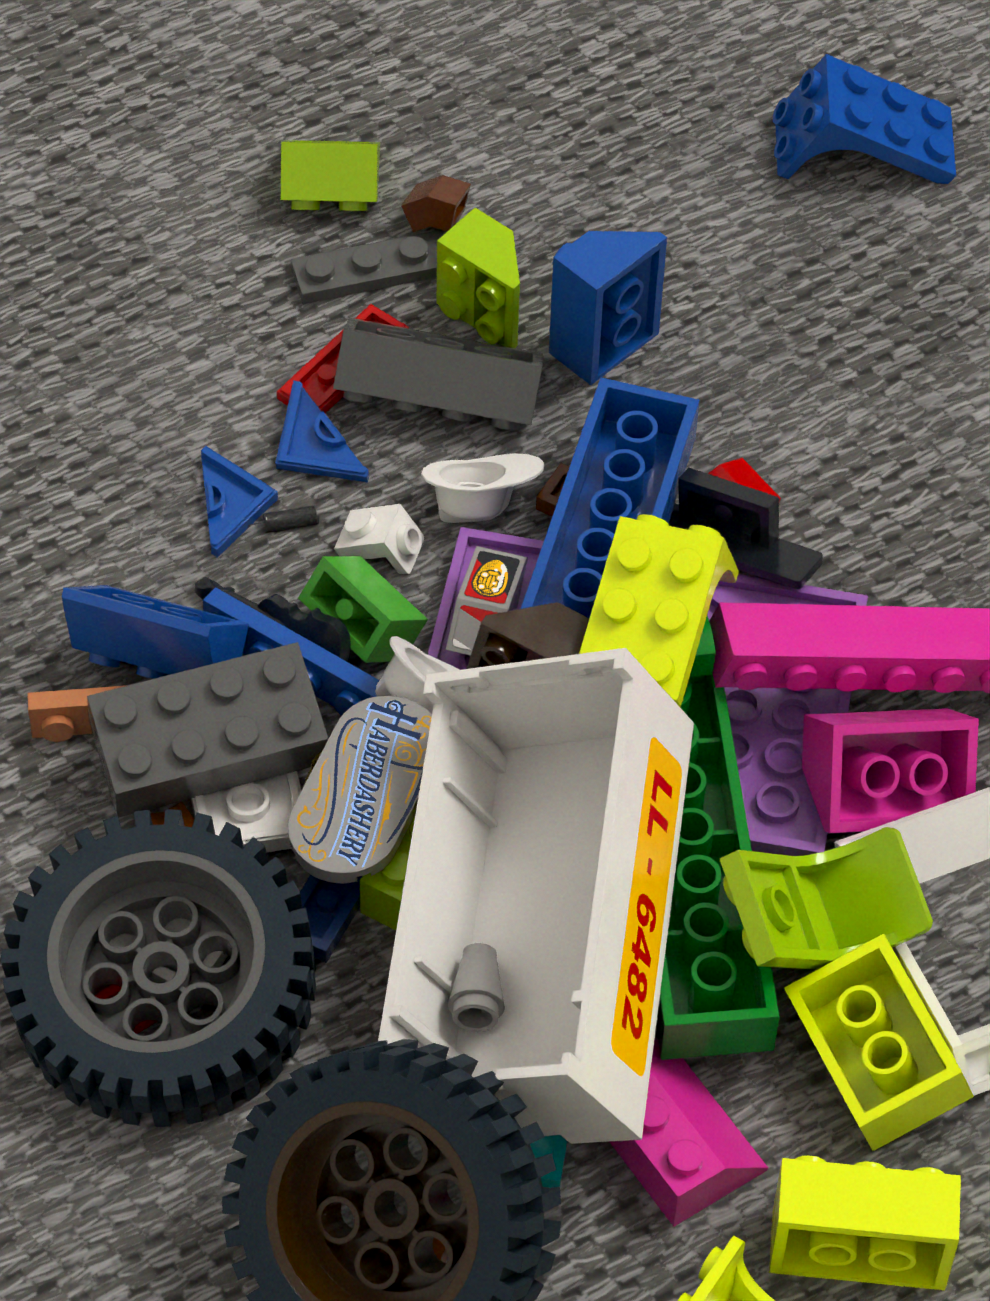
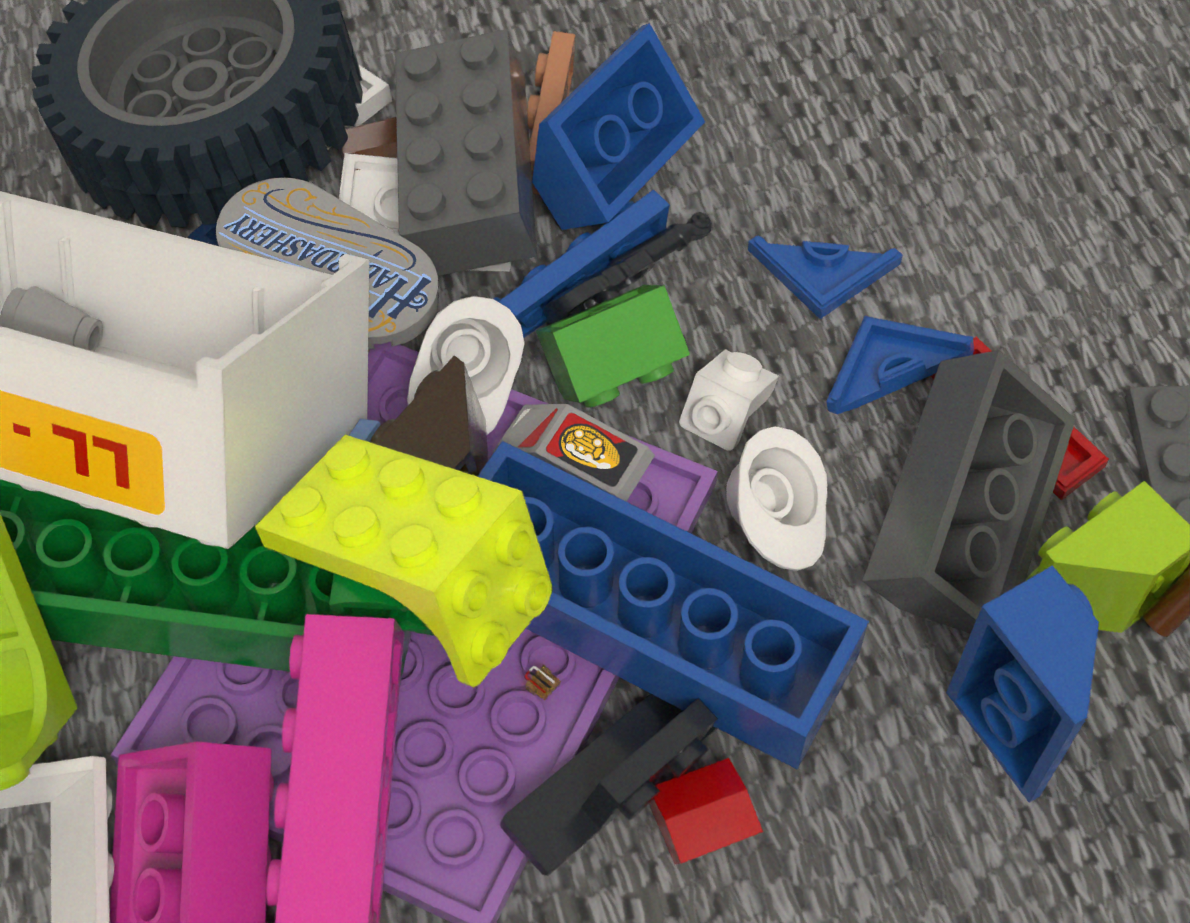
camera: 105 degrees right, 5 degrees up
(290, 518) = (784, 318): dark grey piece -> none

